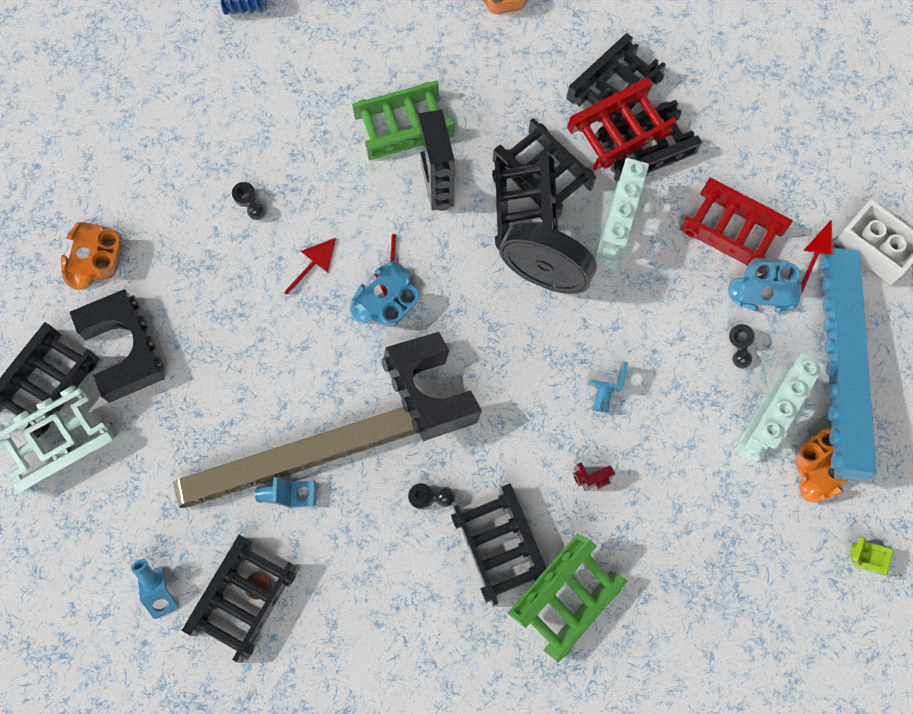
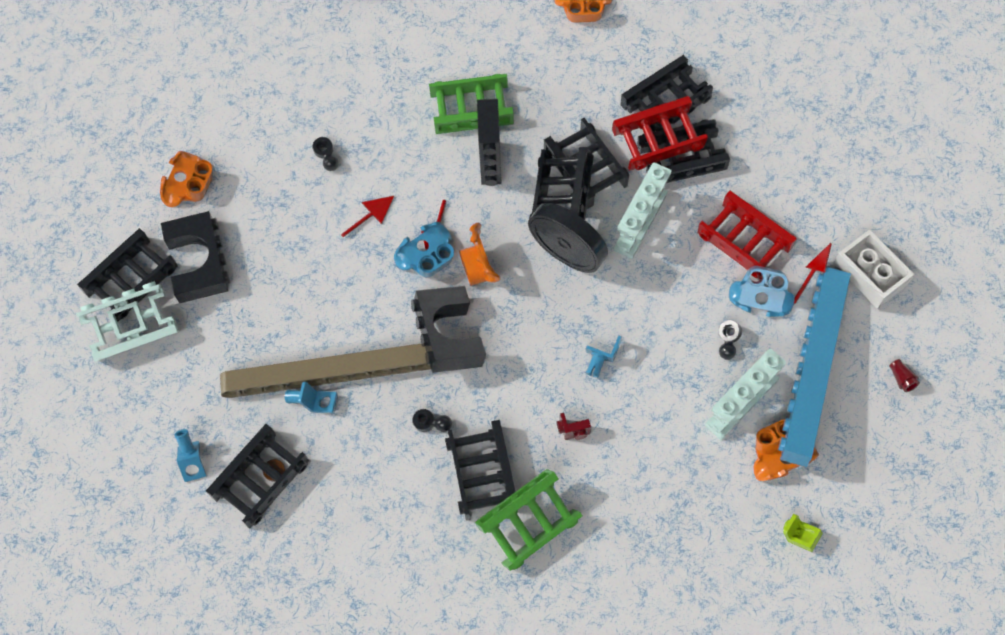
camera: 15 degrees right, 5 degrees down
(446, 300) = (475, 260): none -> orange piece

